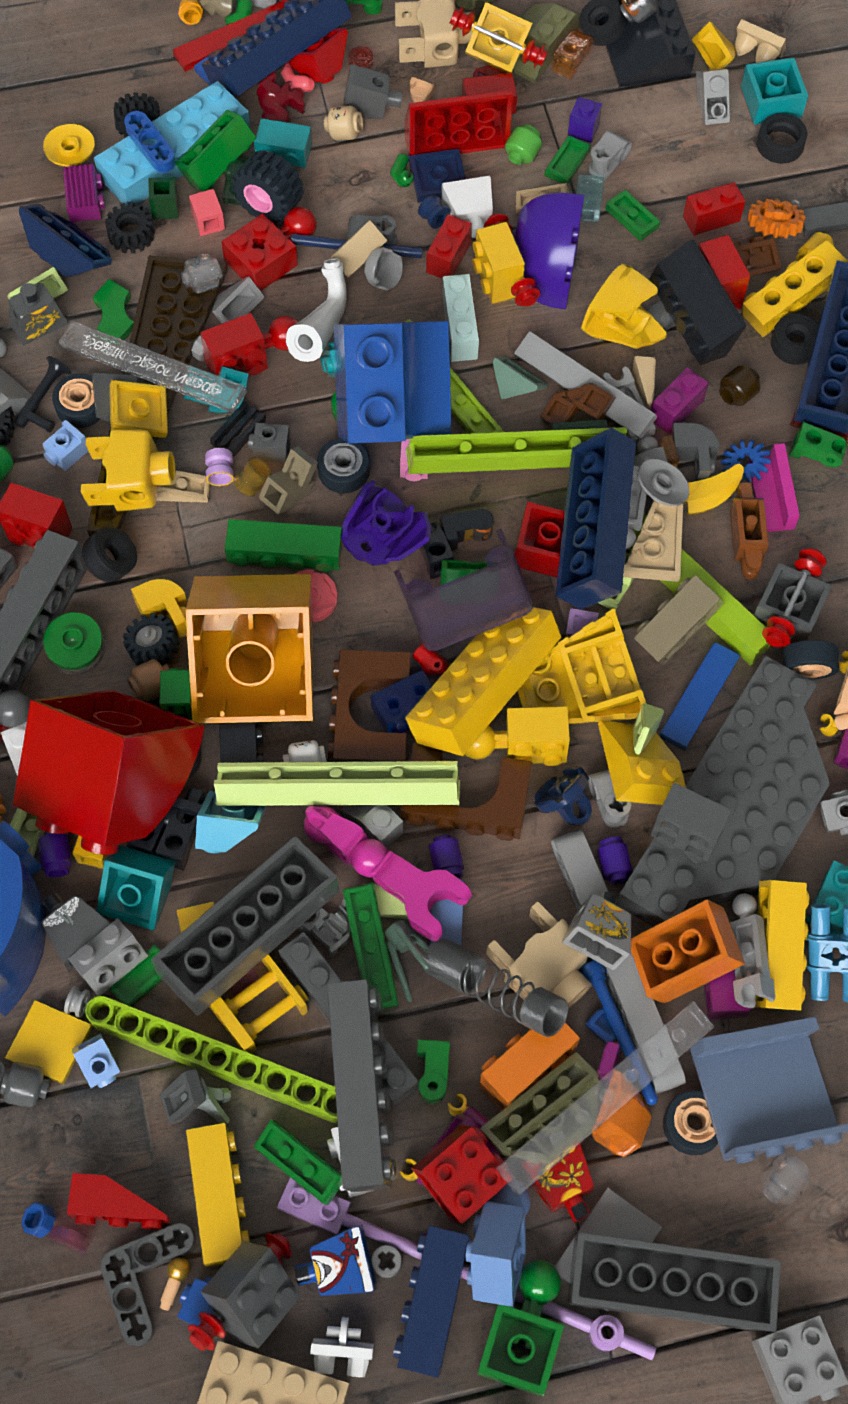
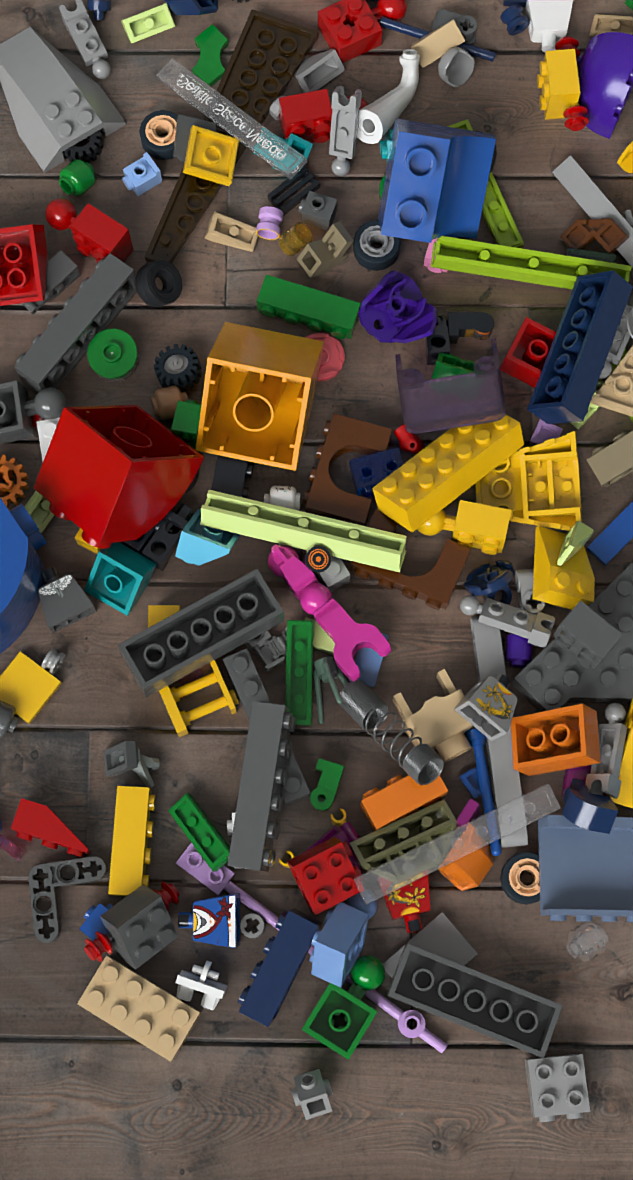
camera: 15 degrees right, 10 degrees up
(27, 413) = (116, 136): black piece -> none
(34, 313) = (141, 44): dark grey torso -> none
(55, 854) = (60, 535): dark purple brick -> none
(96, 1061) = (58, 713): light blue brick -> none
(108, 957) = (85, 631): light grey brick -> none
(132, 470) = (193, 212): yellow piece -> none
(138, 981) = (104, 653): green tile -> none
(162, 598) = (194, 332): yellow brick -> none
(177, 1271) = (88, 892): piece -> none
(201, 273) = (293, 39): clear head -> none
(206, 1048) = (145, 726): lime beam -> none
(279, 351) = (343, 129): none -> light grey plate
(361, 810) = (317, 559): none -> black tile
(446, 855) = (380, 611): dark purple brick -> none
(449, 247) = (519, 58): red piece -> none
(461, 317) = (512, 128): light aqua brick -> none
(514, 379) = (546, 196): sand green slope -> none
(598, 829) = (511, 619): none -> light grey plate
(746, 1020) = (588, 809): none -> dark blue brick

